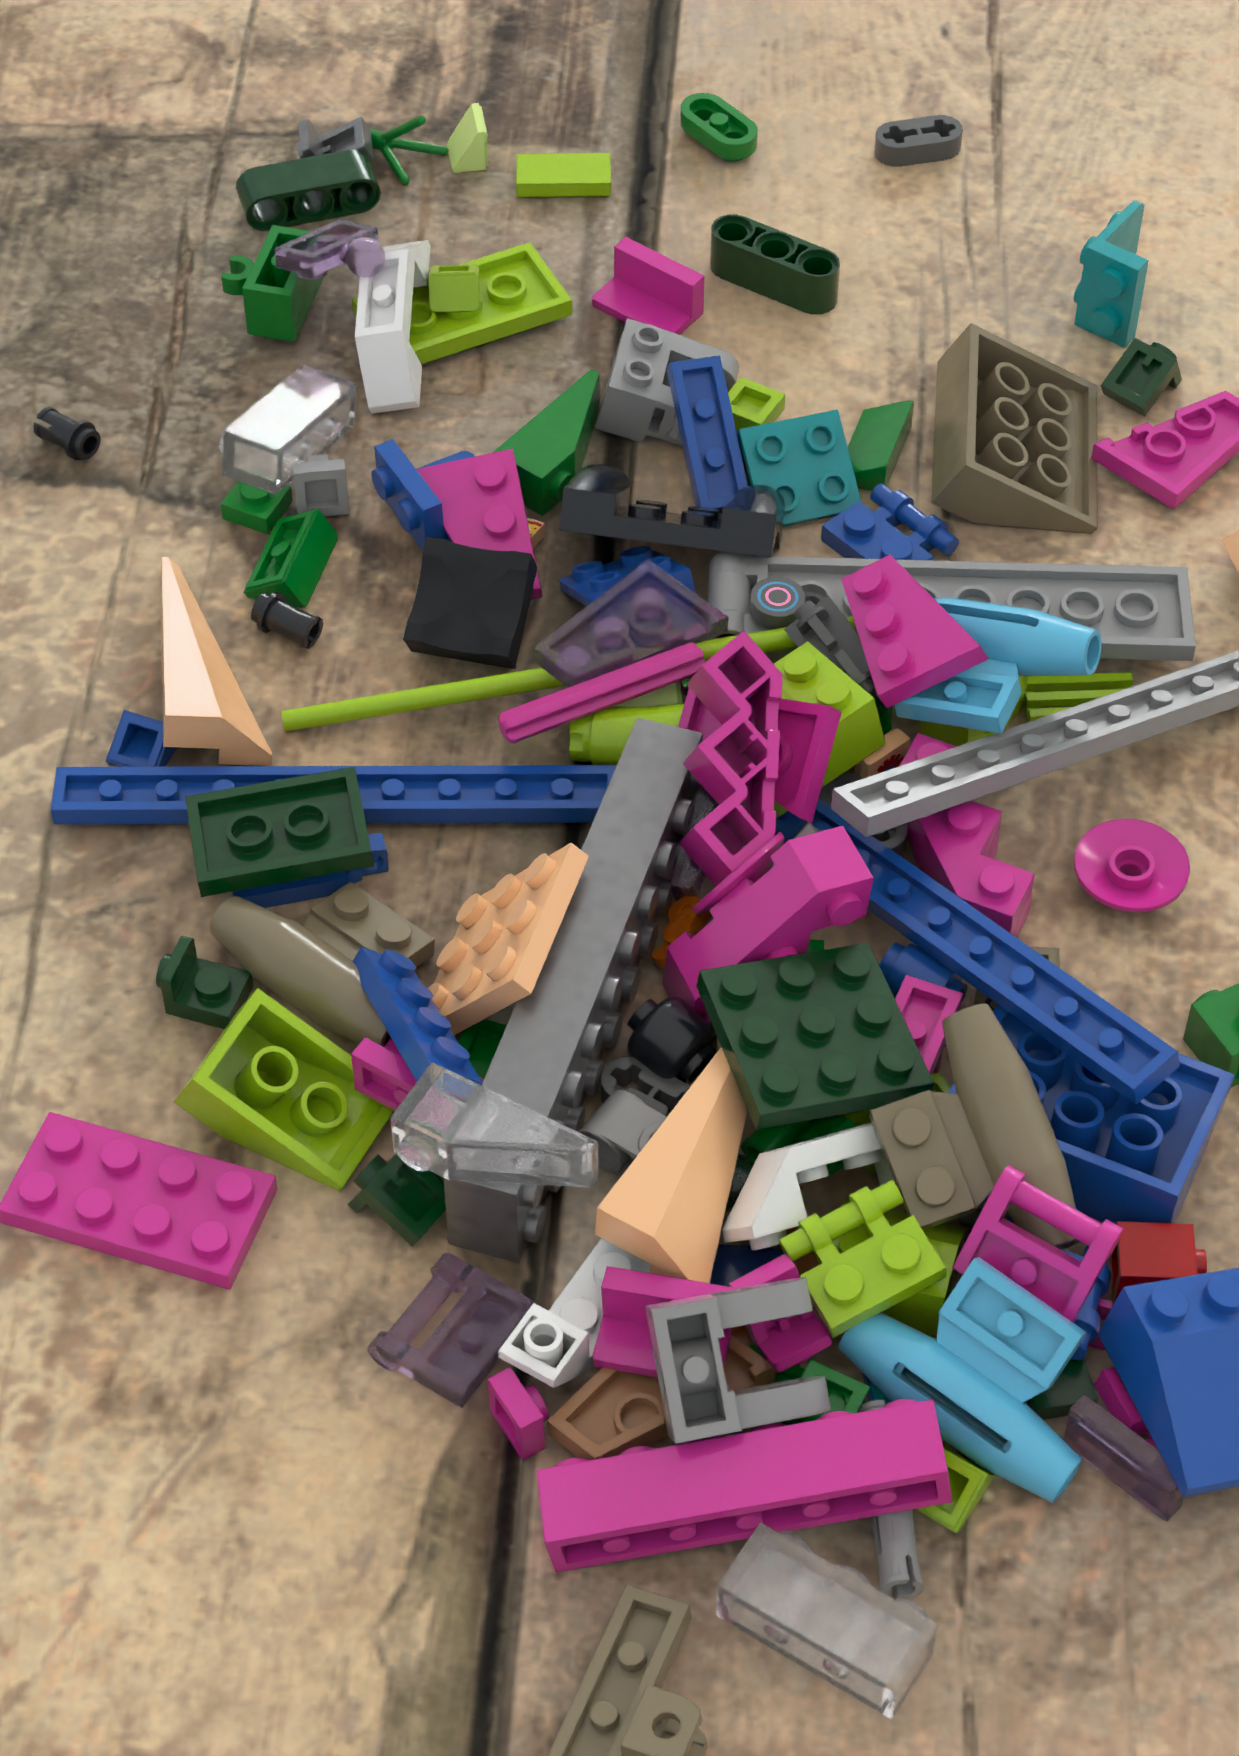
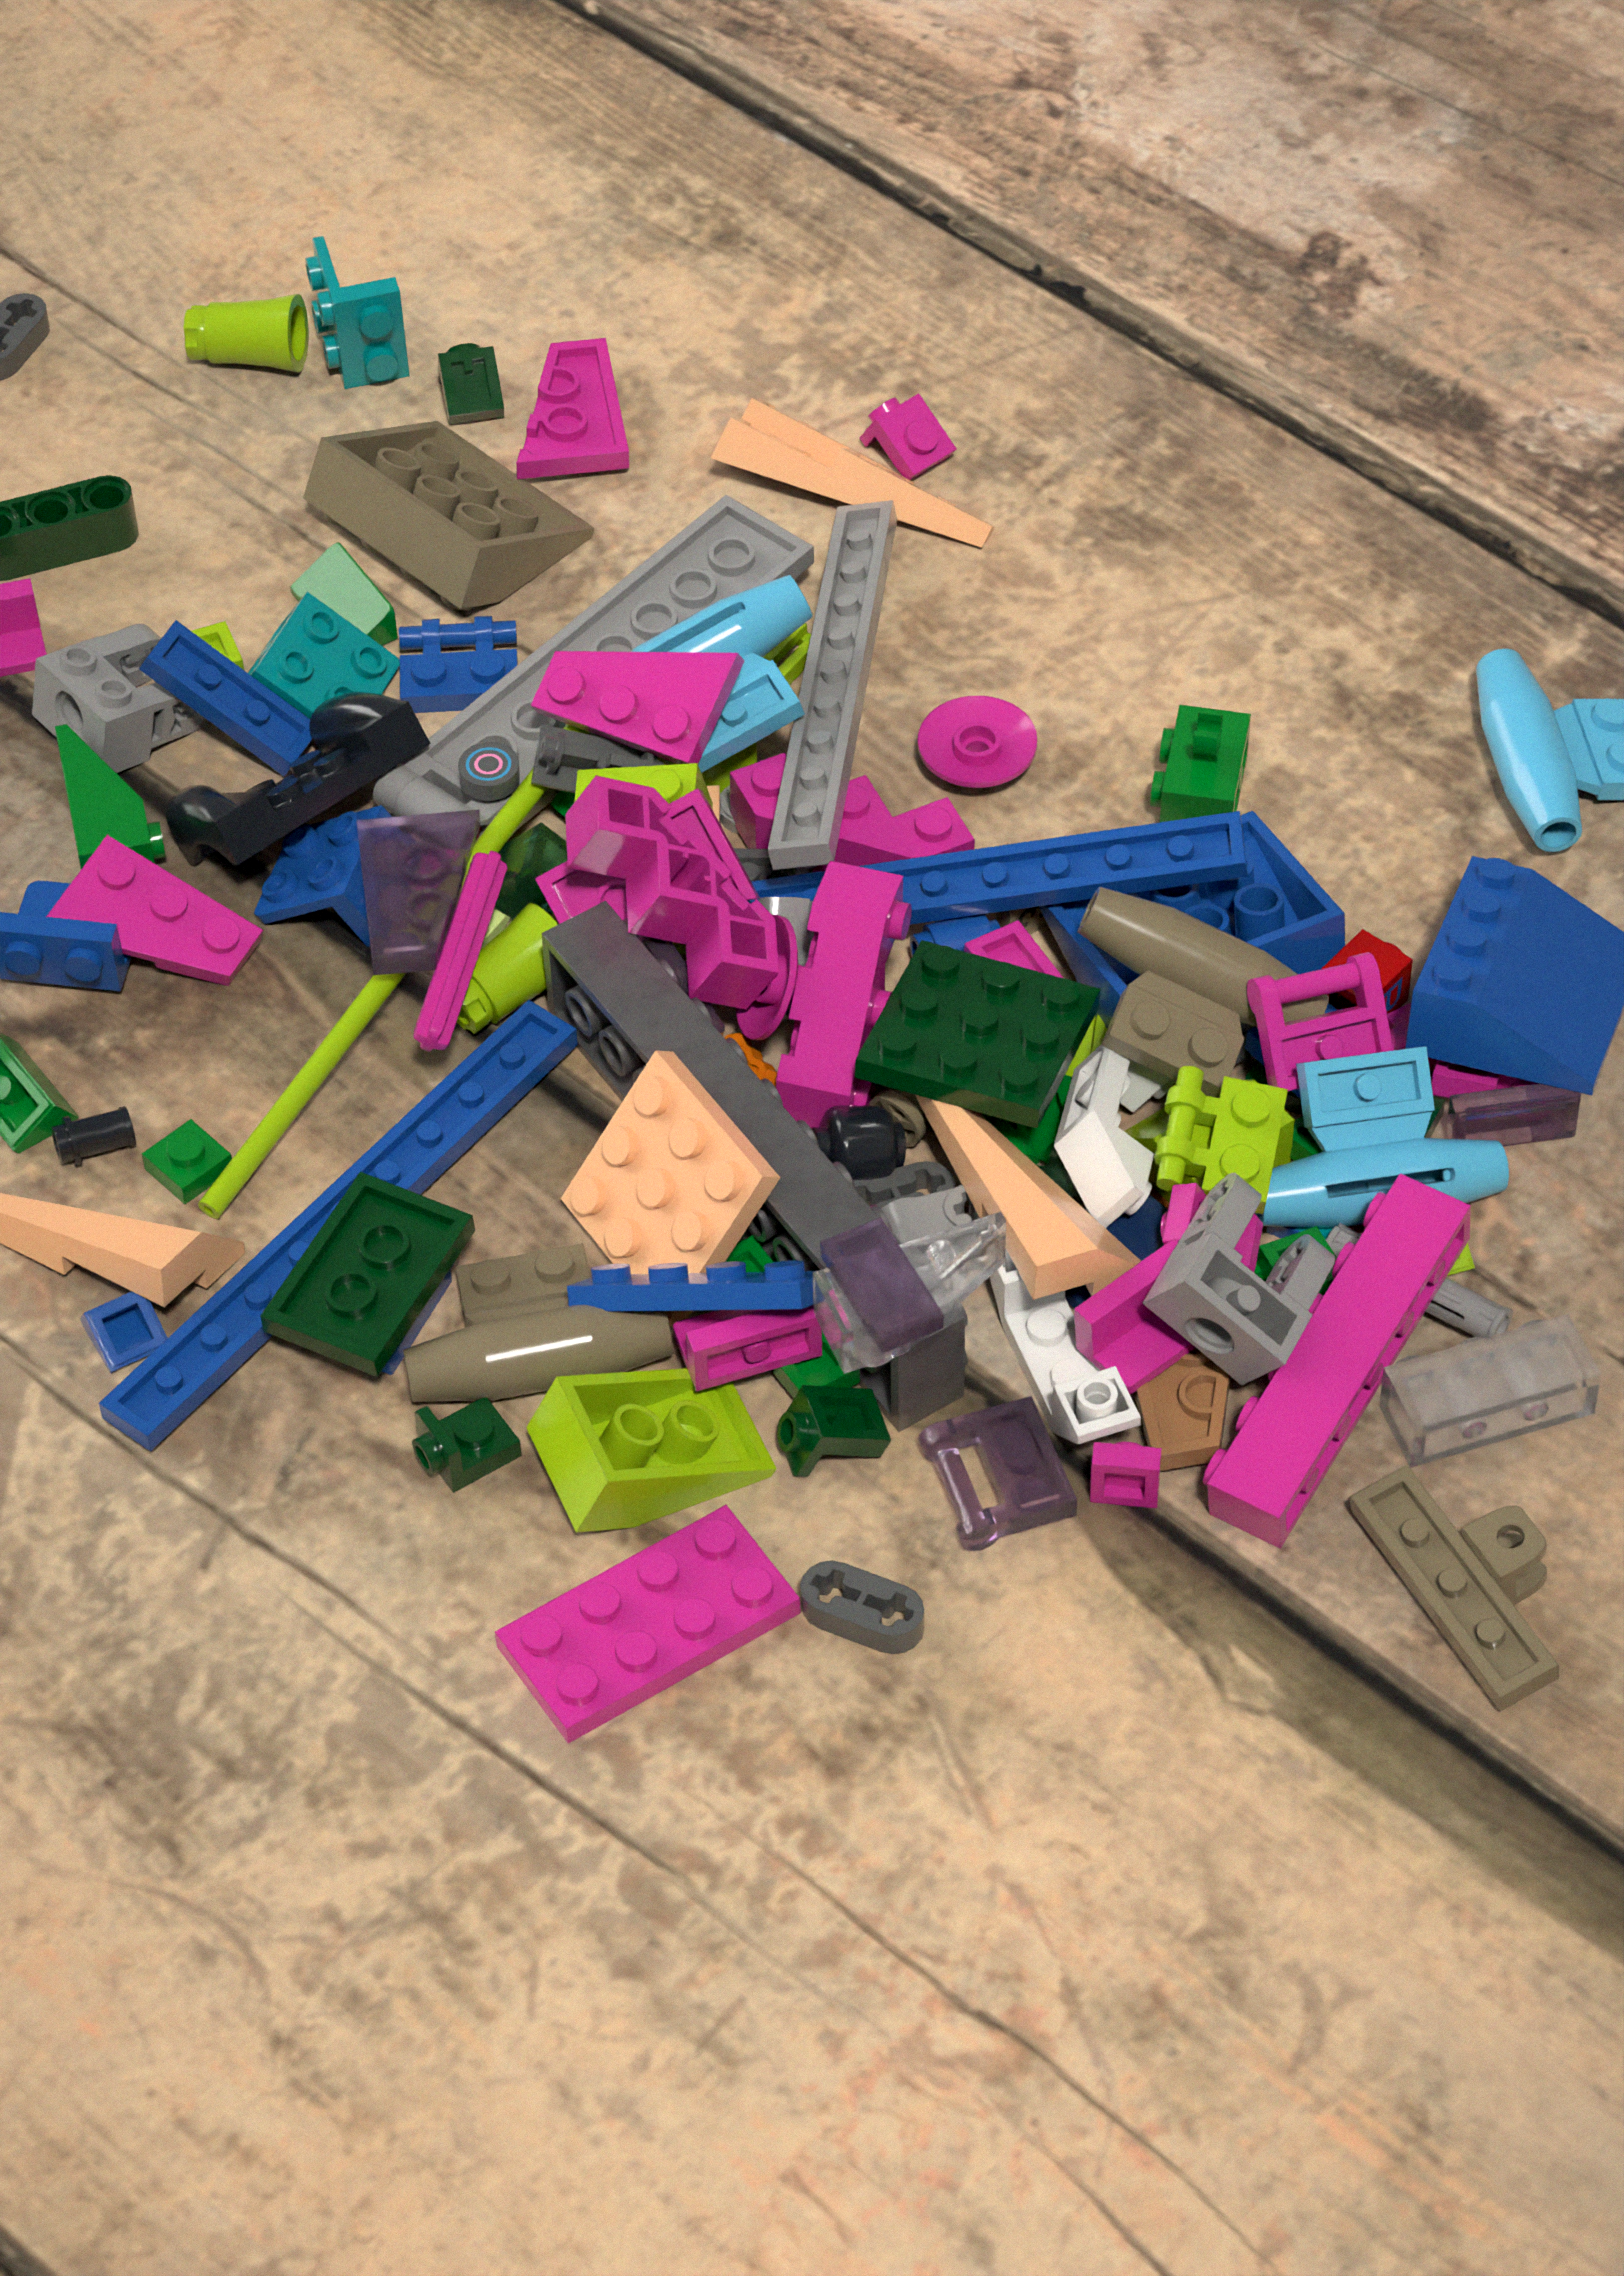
camera: 50 degrees left, 0 degrees up
(246, 1325) = (862, 1607): none -> dark grey beam
(314, 680) = (186, 1161): none -> green plate
(450, 1110) = (881, 1285): none -> clear purple tile
(471, 603) = (240, 983): black brick -> none
(1047, 240) = (249, 332): none -> lime plant

